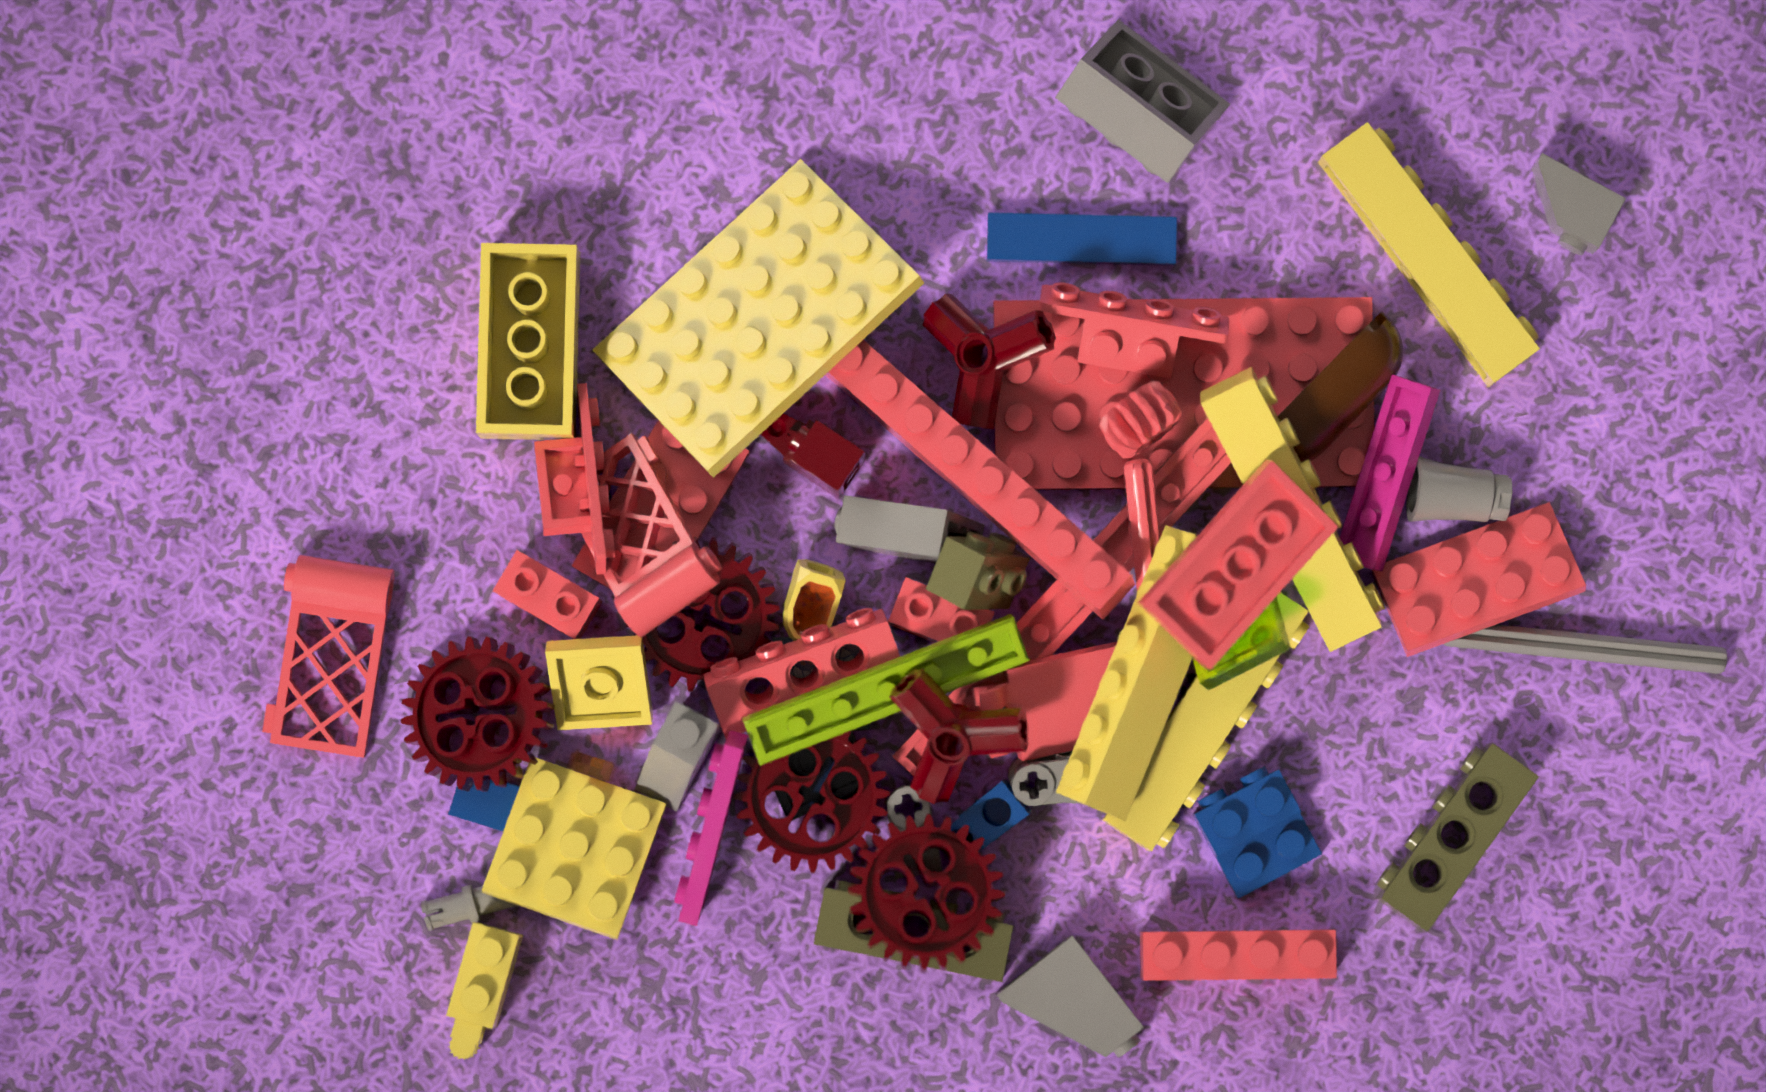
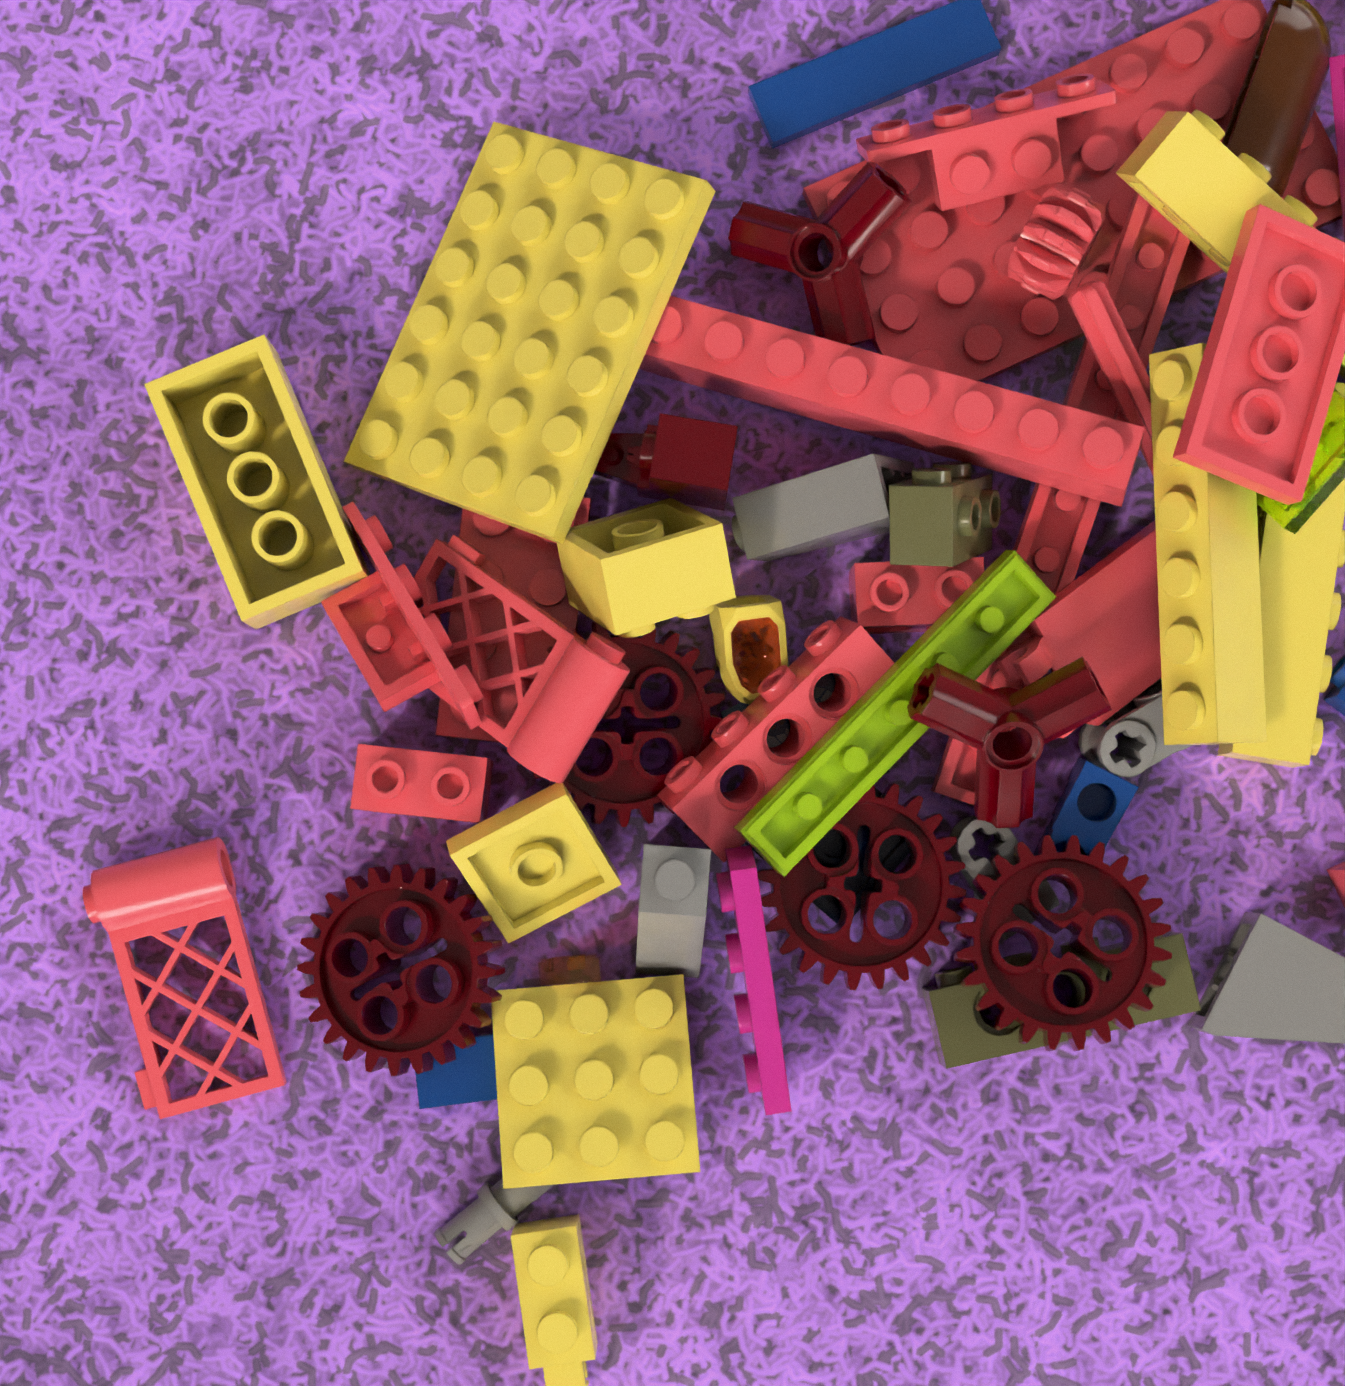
camera: 25 degrees left, 0 degrees up
(762, 517) = (646, 567): none -> light yellow brick

